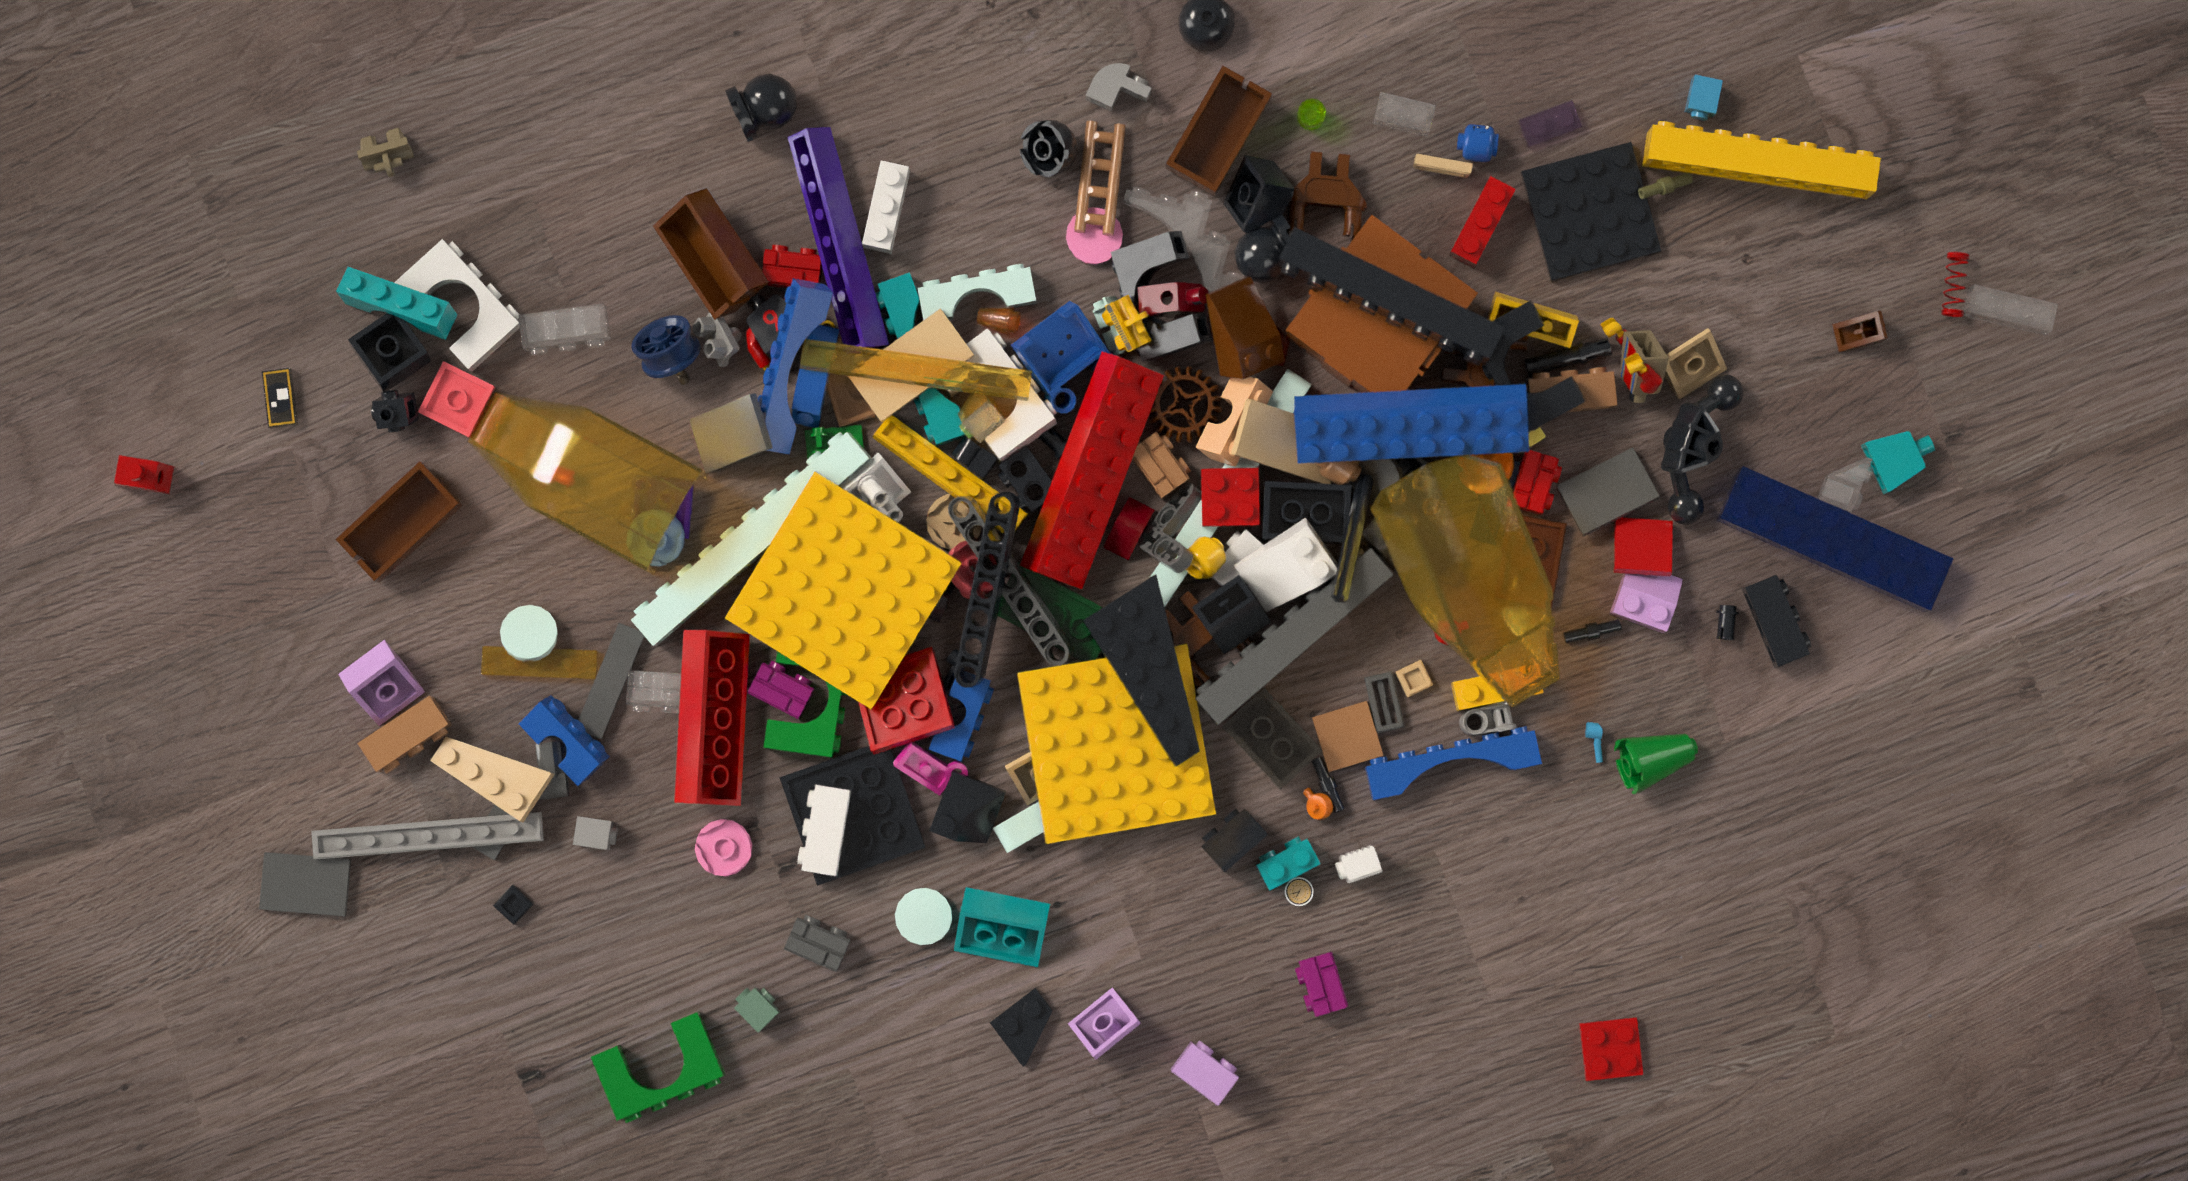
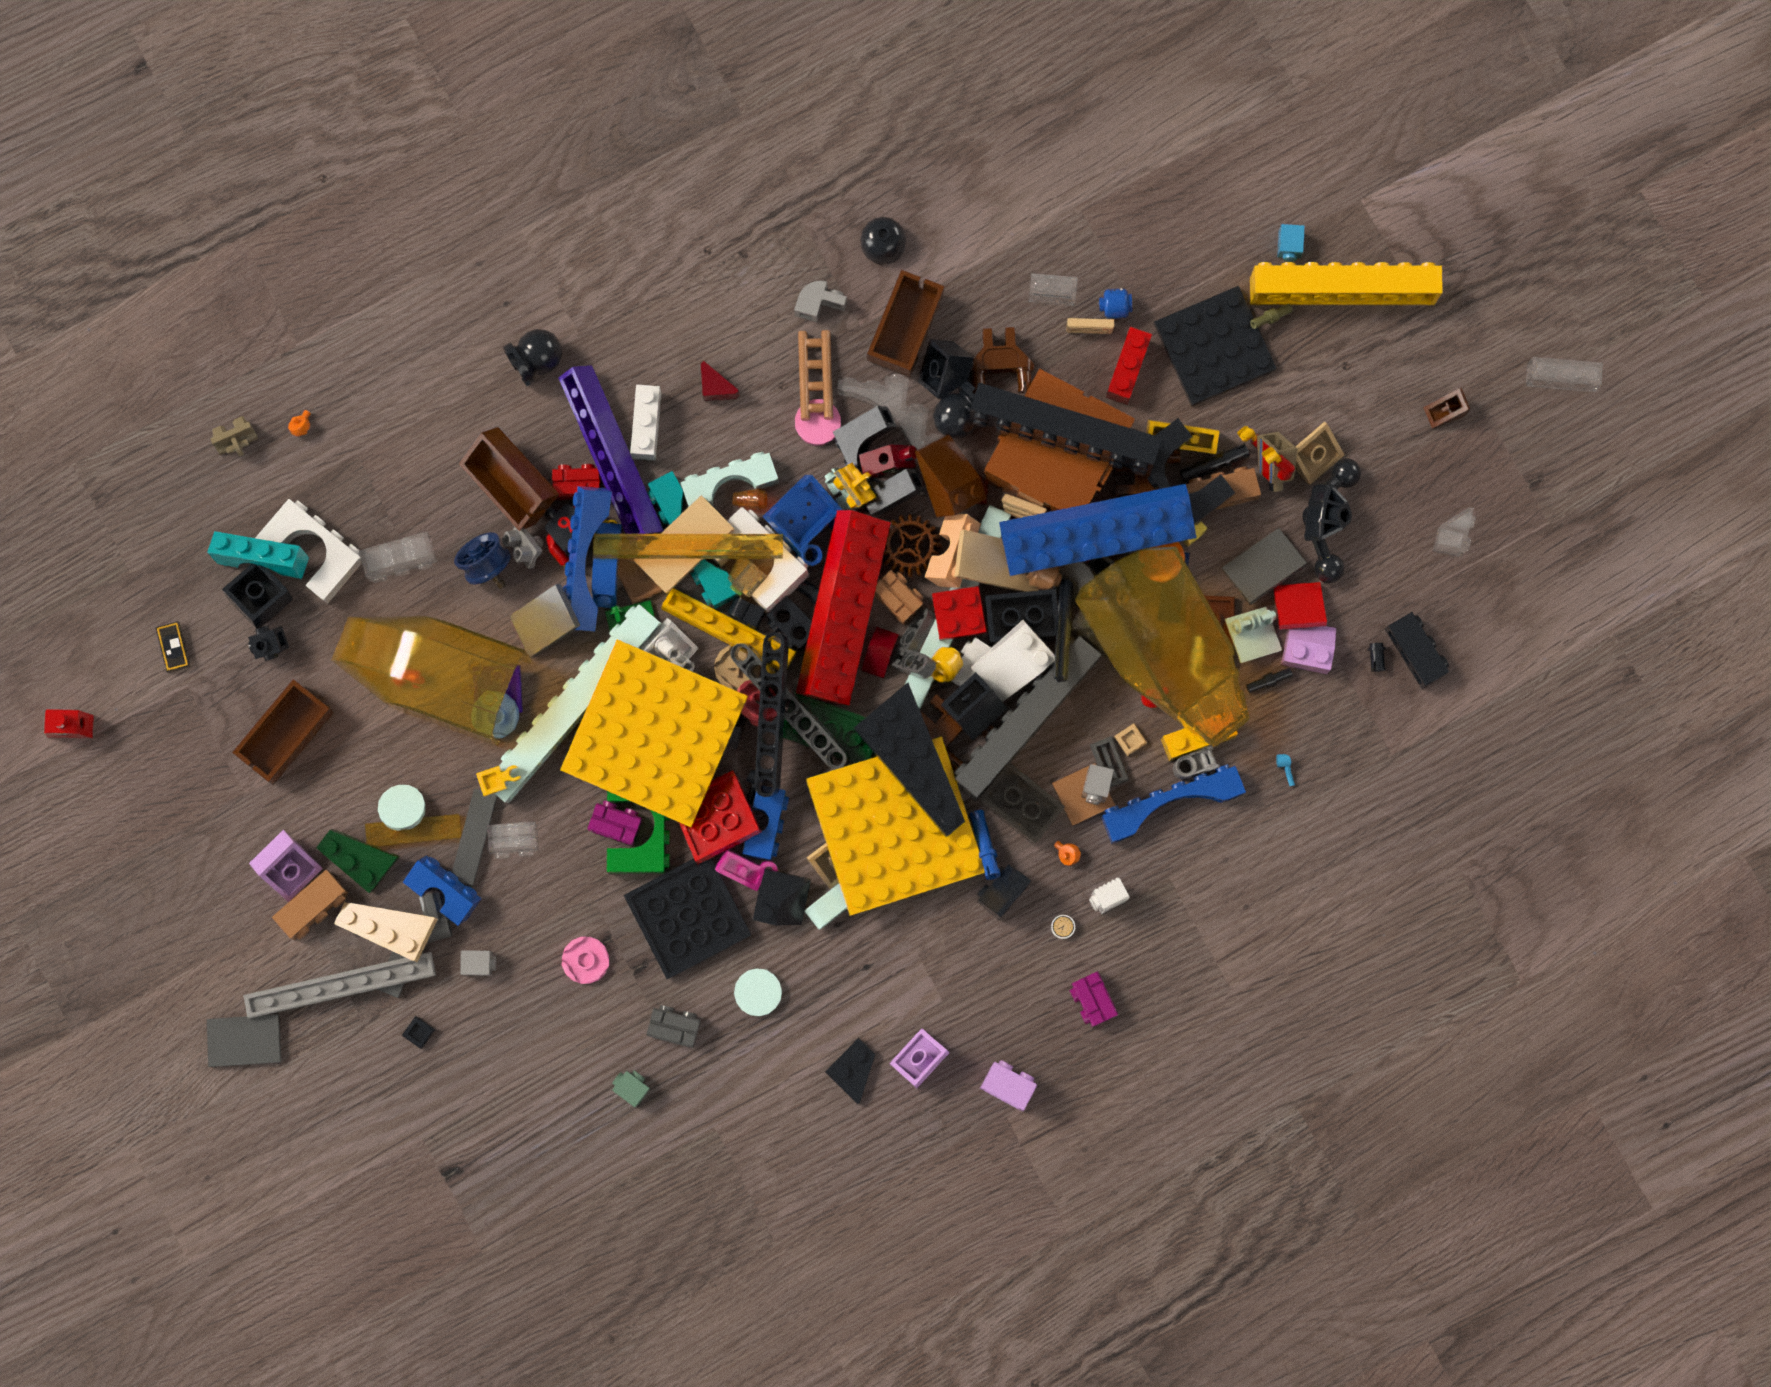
camera: 10 degrees left, 5 degrees down
(456, 399) = (317, 627): coral plate -> none
(467, 148) = (300, 424): none -> orange piece
(468, 688) = (357, 859): none -> dark green wing
(630, 1097) = (590, 1144): green arch -> none
(644, 618) = (495, 780): none -> yellow plate
(712, 717) = (561, 853): red brick -> none
(824, 830) = (666, 932): white brick -> none
(976, 174) = (716, 386): none -> dark red slope
(1001, 927) = (823, 991): teal slope -> none
(1048, 148) = (770, 356): black cylinder -> none
(1220, 783) = (987, 853): none -> blue pin
(1287, 864) = (1050, 905): teal brick -> none
(1311, 114) = (978, 295): clear neon green wheel -> none
(1325, 379) = (1020, 508): none -> tan tile
(1327, 784) = (1073, 835): black bar -> none
(1364, 729) = (1097, 784): none -> light grey brick
(1535, 481) = (1204, 564): red brick -> none
(1550, 124) = (1171, 281): clear purple plate -> none
(1582, 573) = (1254, 634): none -> light aqua hinge
(1611, 1049) = (1338, 1018): red plate -> none
(1652, 758) = (1334, 775): green cone -> none
(1834, 539) = (1454, 577): clear blue brick -> none
(1897, 458) = (1493, 505): teal torso -> none
(1955, 256) = (1513, 339): red piece -> none

